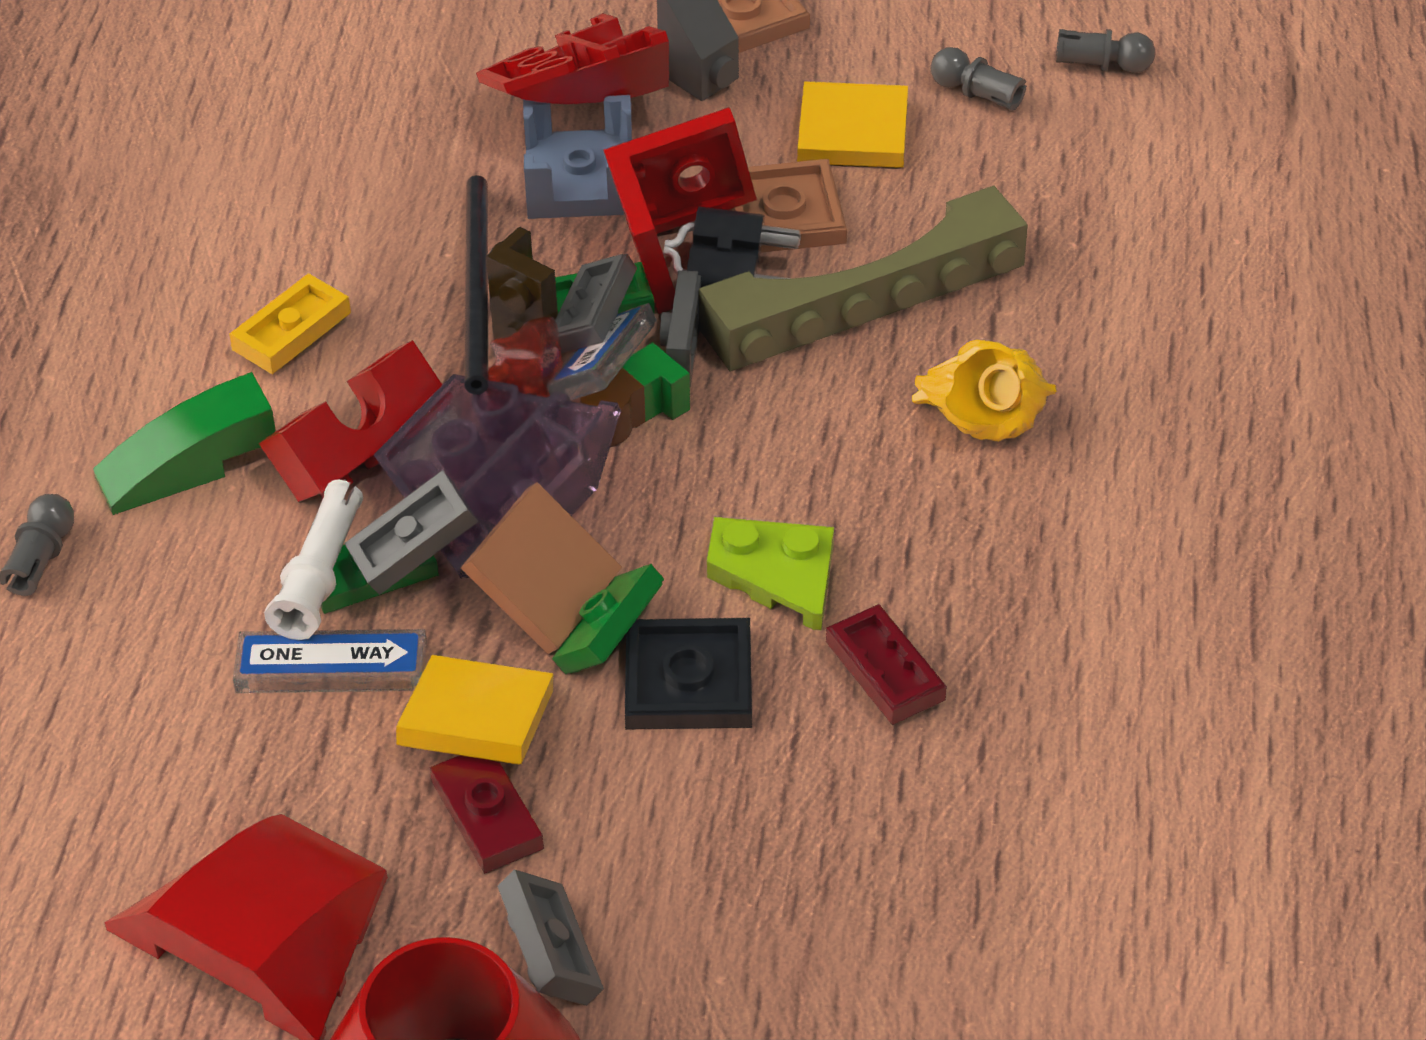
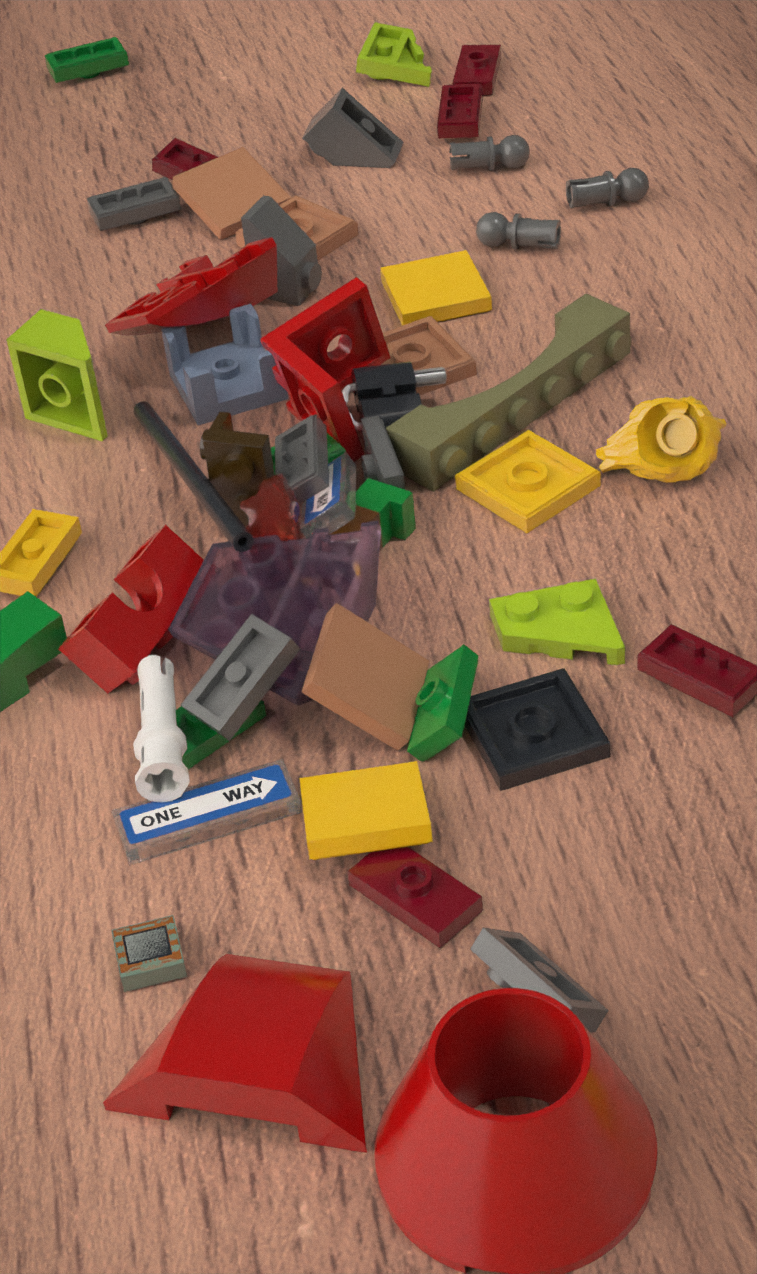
camera: 15 degrees left, 5 degrees down
(210, 789) = (148, 953): none -> tile
(397, 122) = (57, 375): none -> lime slope
(830, 390) = (528, 481): none -> yellow tile

